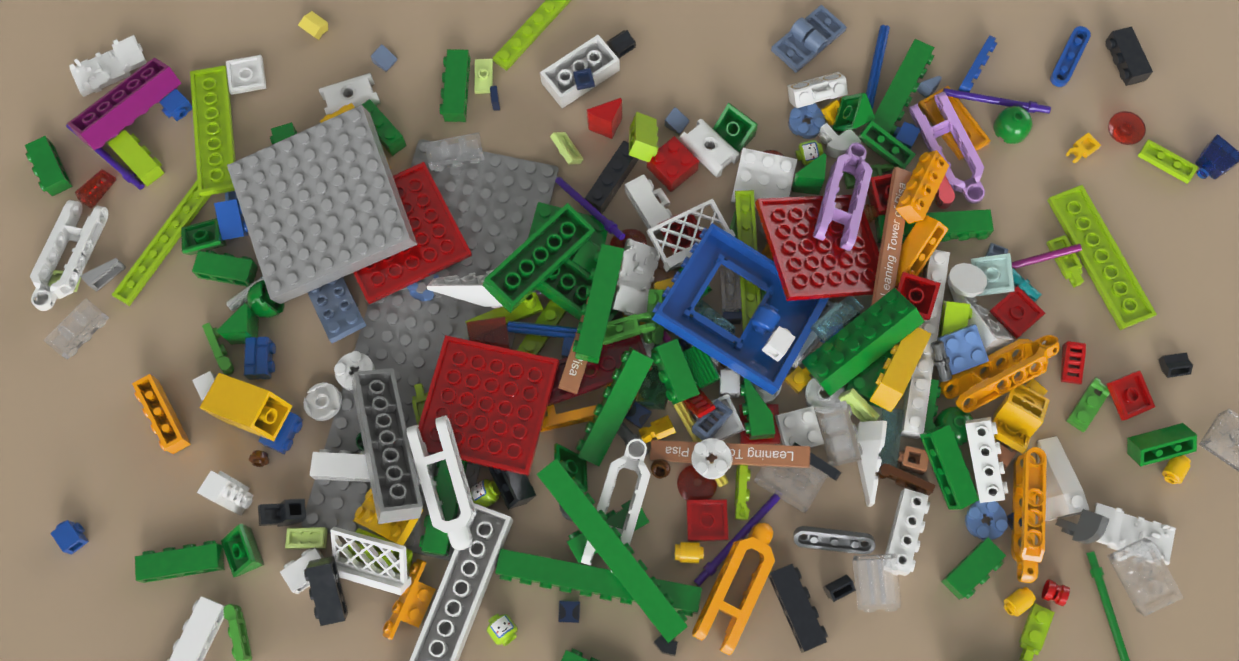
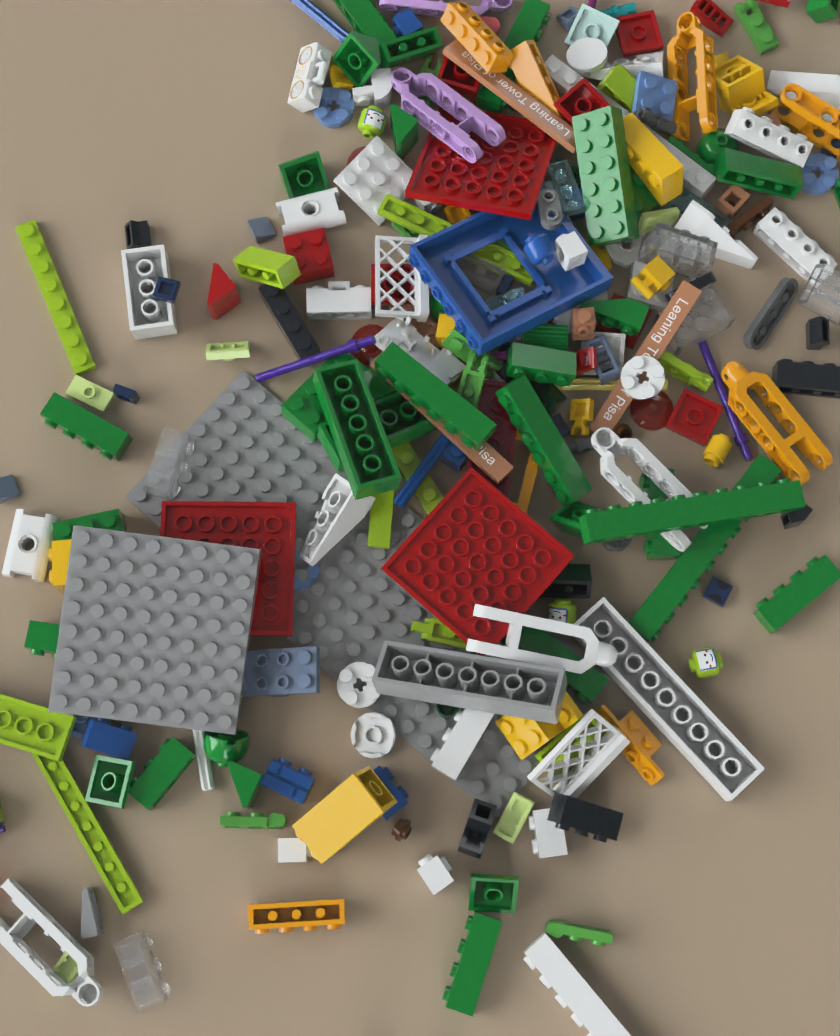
camera: 65 degrees left, 5 degrees up
(489, 331) = (396, 526): clear red plate -> none
(729, 388) = (582, 323): none -> nougat brick
(804, 425) = (653, 278): none -> yellow brick
(808, 38) = (245, 55): sand blue plate -> none
(810, 312) = (549, 207): none -> light grey plate

